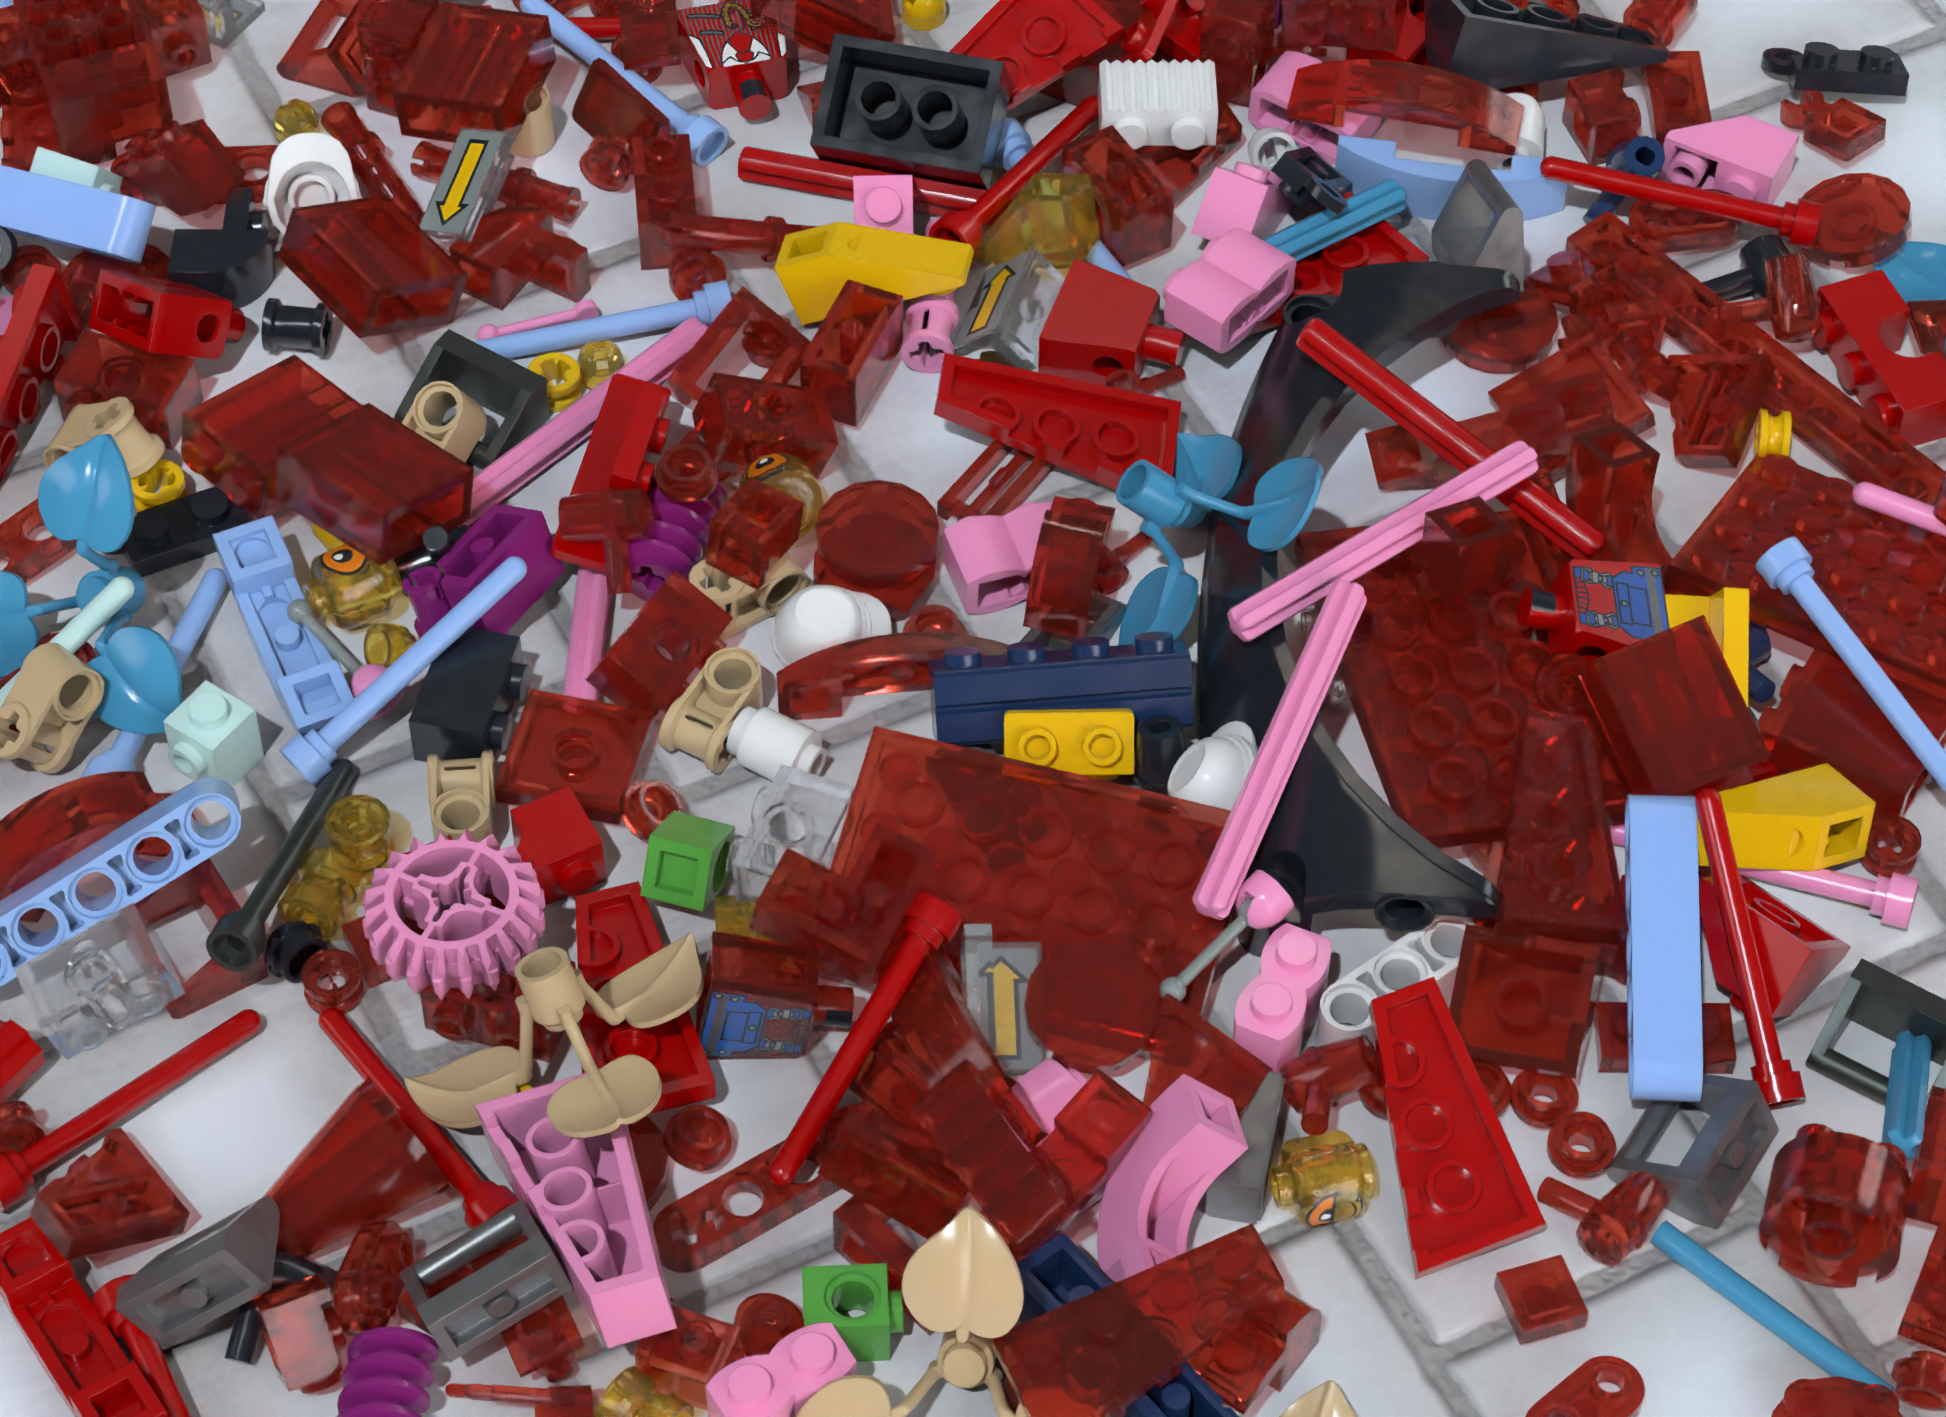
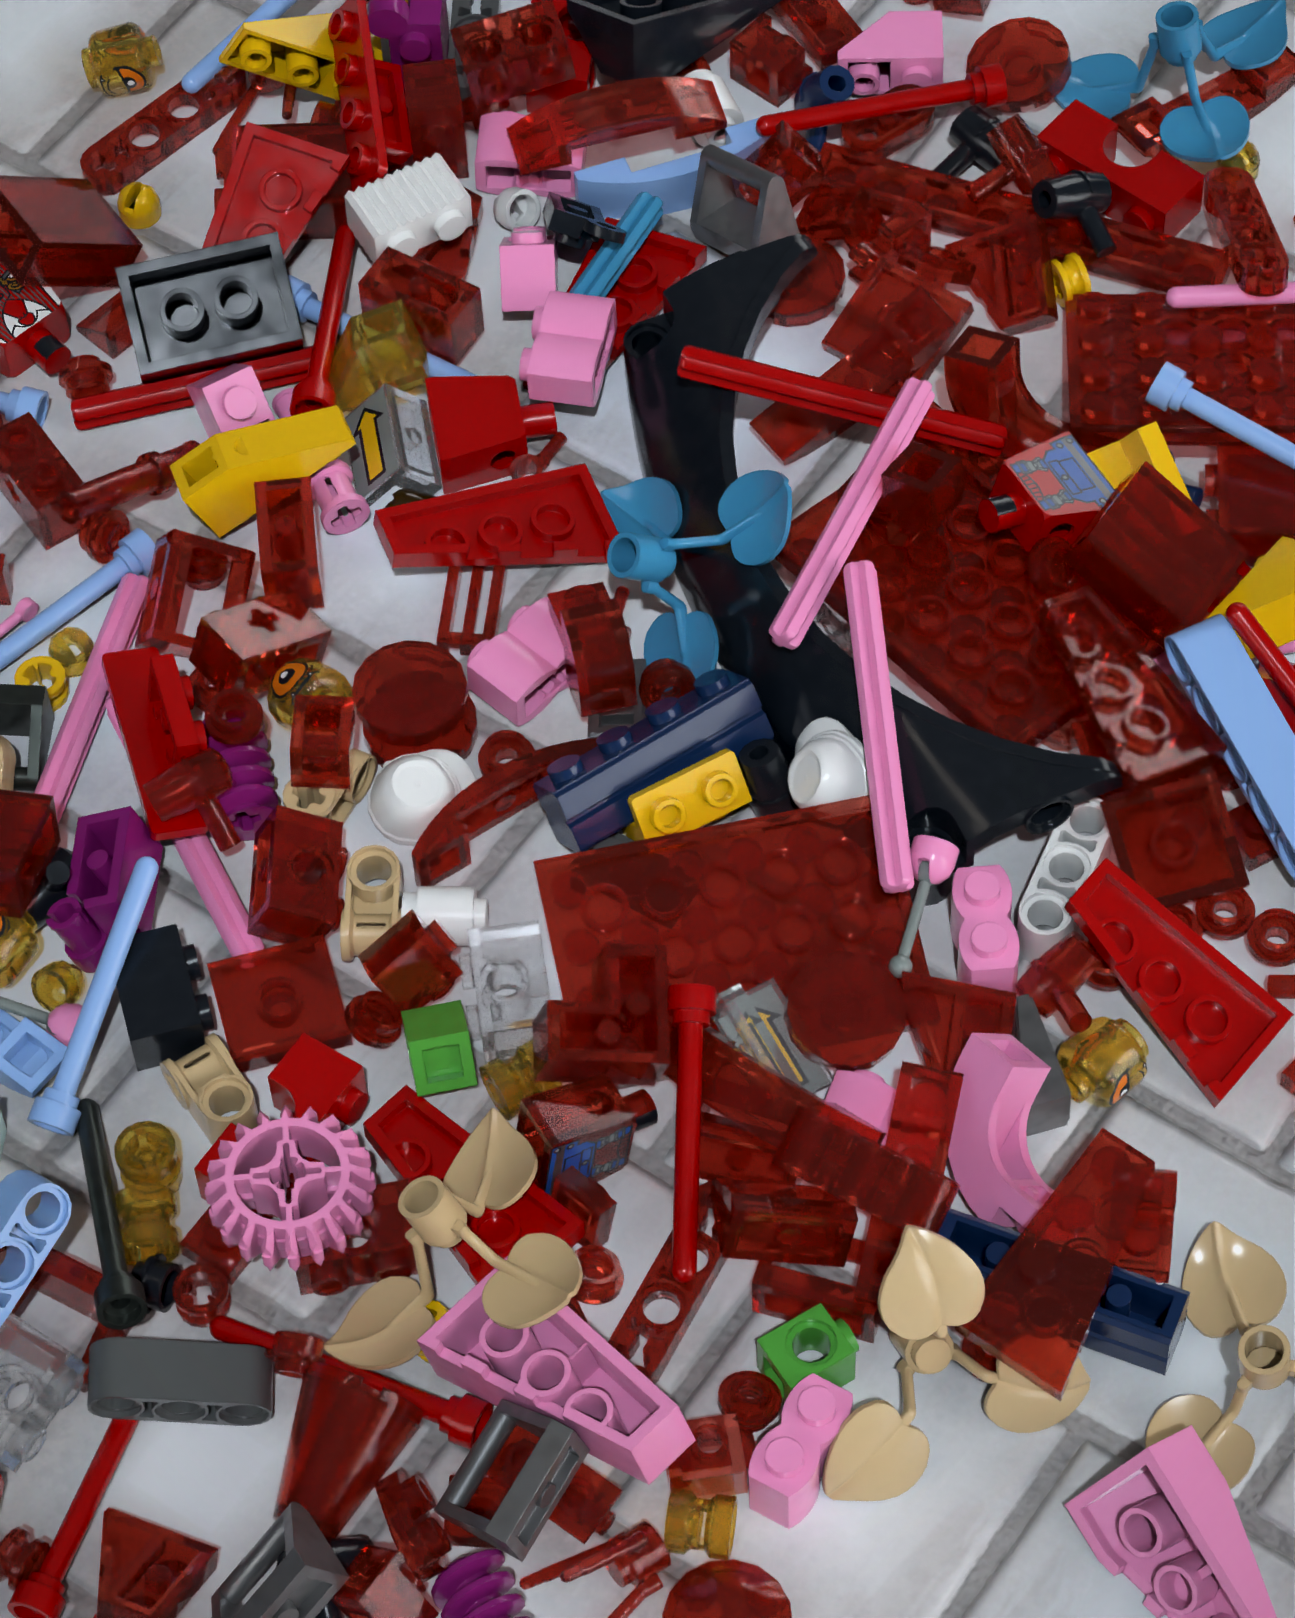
camera: 25 degrees left, 5 degrees up
(253, 1045) = (180, 1381): none -> dark grey beam
(370, 1062) = (294, 1353): none -> clear red plate
(713, 772) = (412, 962): none -> clear red brick
(732, 1067) = (588, 1202): none -> clear red plate
(771, 130) = (85, 376): none -> clear red plate
(1119, 618) = (663, 675): none -> clear red plate
(1562, 218) = (791, 158): none -> clear red brick
(1823, 359) = (1080, 197): none -> black piece

